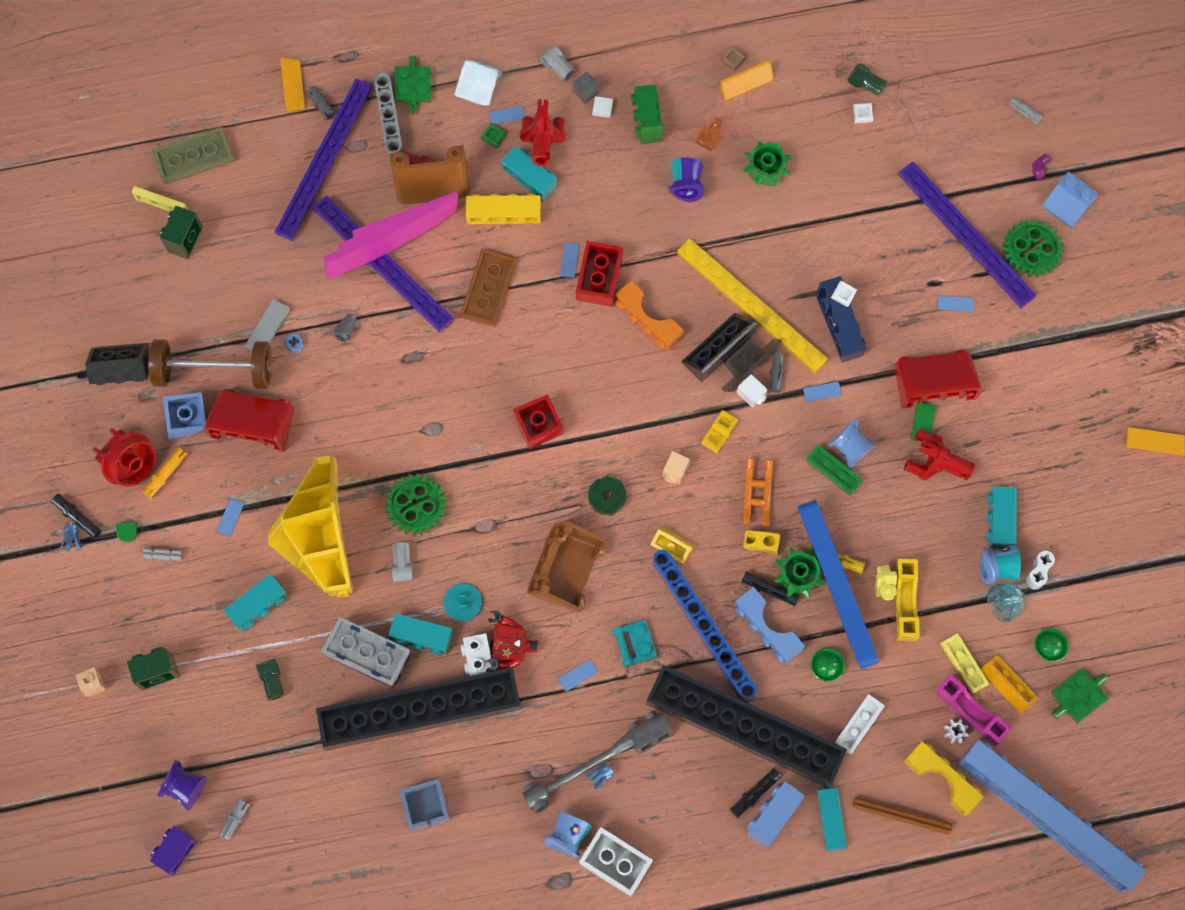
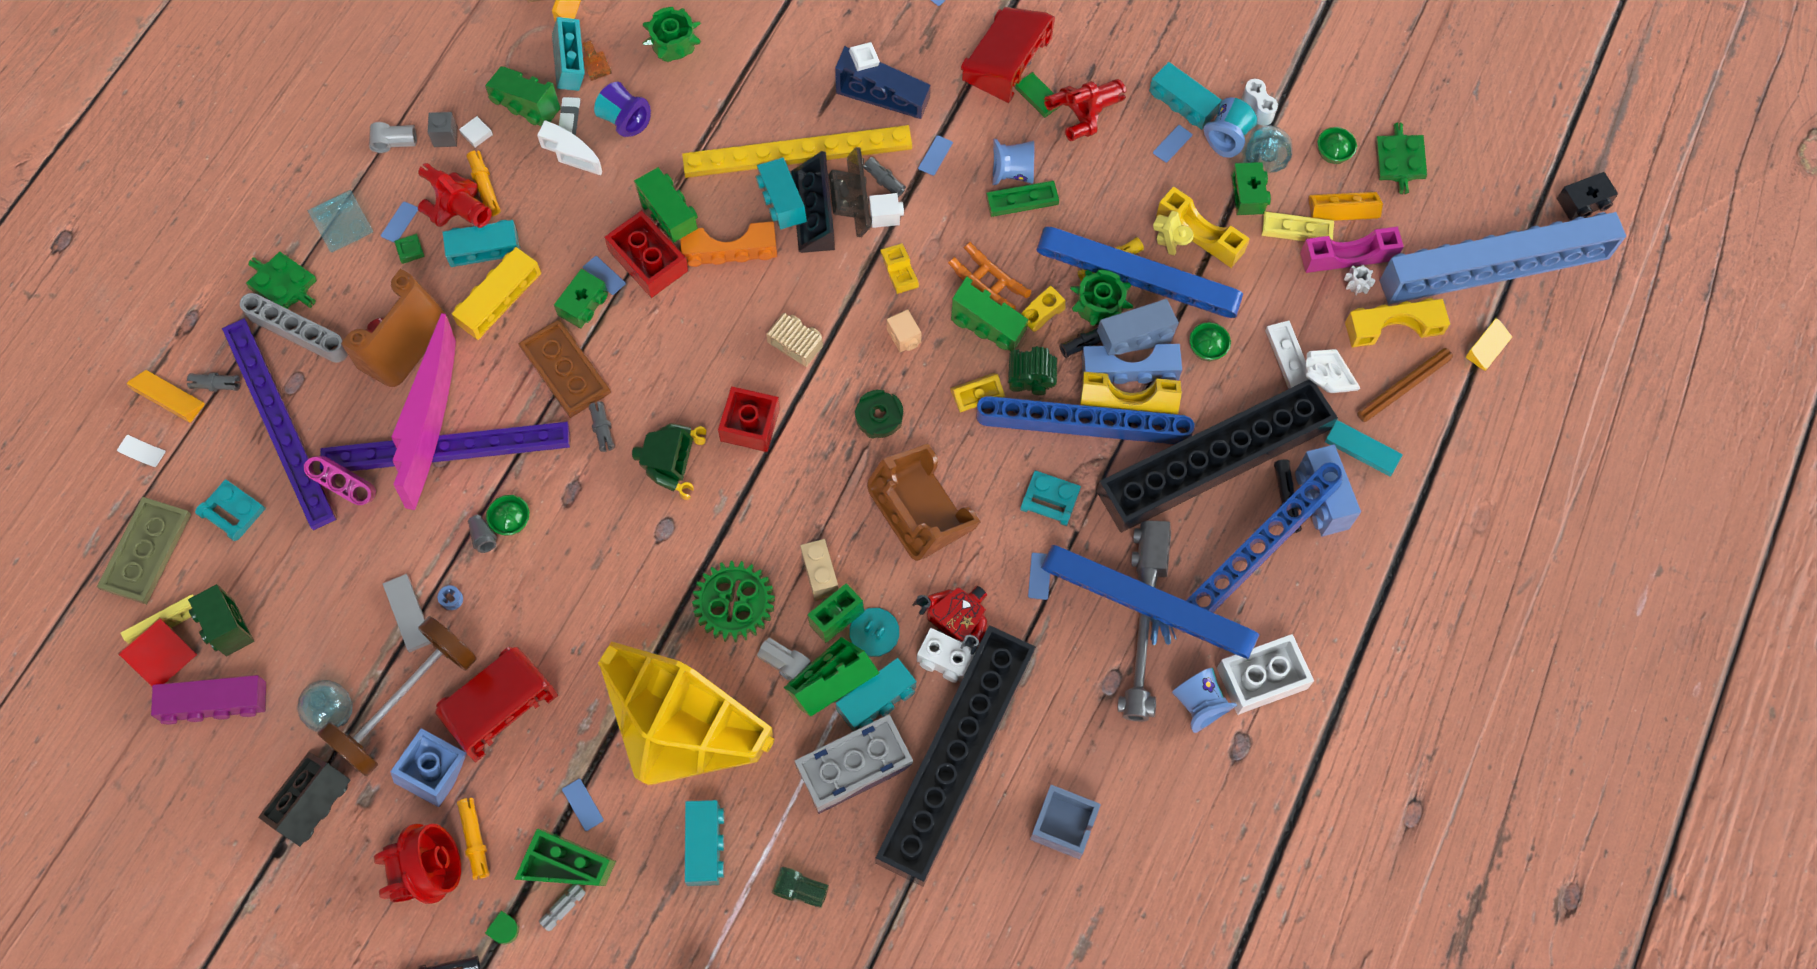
camera: 55 degrees left, 5 degrees down
(131, 260) = (208, 699): none -> magenta brick
(138, 215) = (157, 653): none -> red tile
(178, 328) = (322, 703): none -> clear light blue cylinder
(186, 533) = (563, 861): none -> green wedge
(250, 101) = (141, 451): none -> white sticker
(258, 179) = (236, 504): none -> teal plate
(307, 216) = (327, 479): none -> dark pink beam
(368, 333) = (507, 515): none -> green hat
(409, 598) = (831, 677): none -> green wedge
(452, 570) = (836, 613): none -> green brick
(467, 340) = (601, 426): none -> dark grey pin
(474, 539) = (819, 569): none -> tan brick
(477, 391) = (667, 454): none -> dark green torso
(531, 256) = (581, 299): none -> green brick
(574, 134) = (480, 176): none -> light orange pin
(605, 755) = (1150, 601): none -> blue beam
(616, 406) = (795, 339): none -> tan brick
(635, 169) = (568, 148): none -> white slope
(638, 259) = (666, 204): none -> green wedge
(661, 151) = (569, 114): none -> white sticker
(699, 115) = (568, 54): none -> teal brick
(702, 801) = (1263, 536): none -> blue beam
(708, 319) = (780, 193): none -> teal brick
(710, 567) = (1032, 370): none -> dark green brick
(726, 512) = (986, 317): none -> green wedge
(730, 622) = (1160, 397): none -> yellow arch
(791, 612) = (1138, 328): none -> sand blue wedge
(865, 758) = (1330, 372): none -> white tile
(961, 536) = (1172, 143): none -> medium blue sticker
(971, 600) = (1250, 189): none -> green brick
(979, 853) = (1489, 345): none -> yellow slope
(1167, 846) = (1587, 196): none -> black brick

